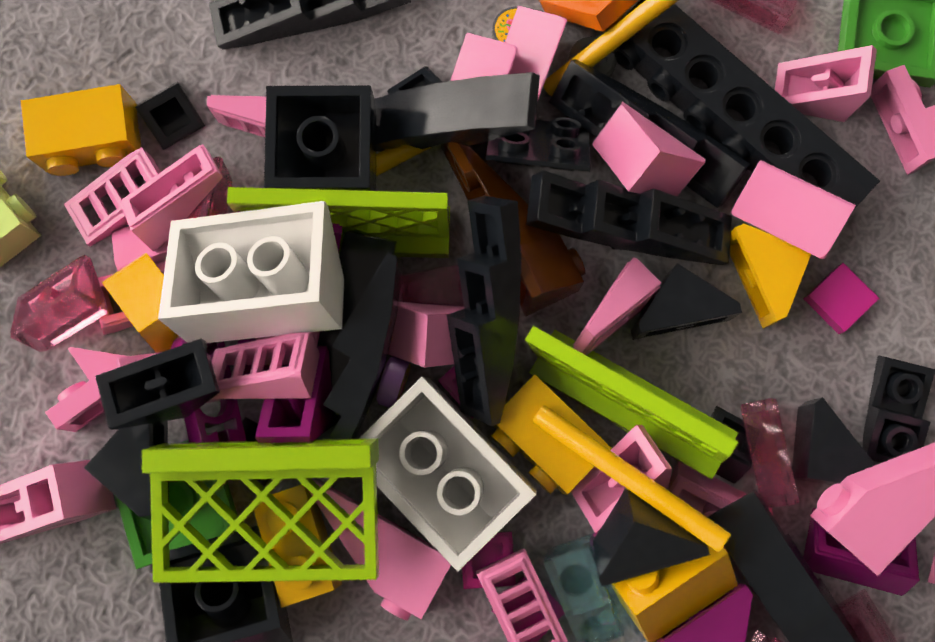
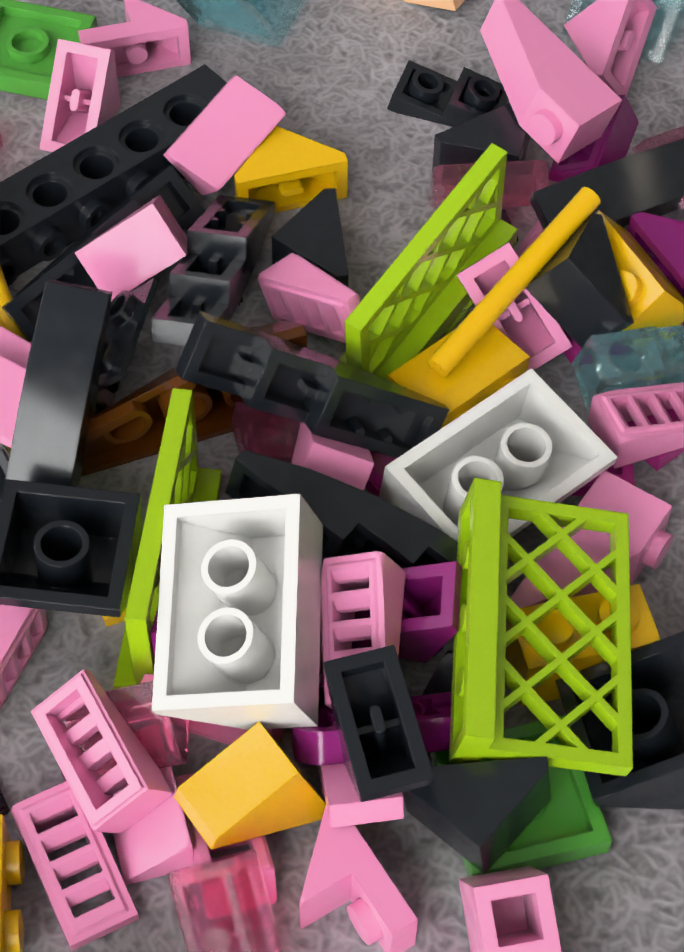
camera: 85 degrees left, 25 degrees down
(841, 298) = (324, 123): dark pink tile -> none

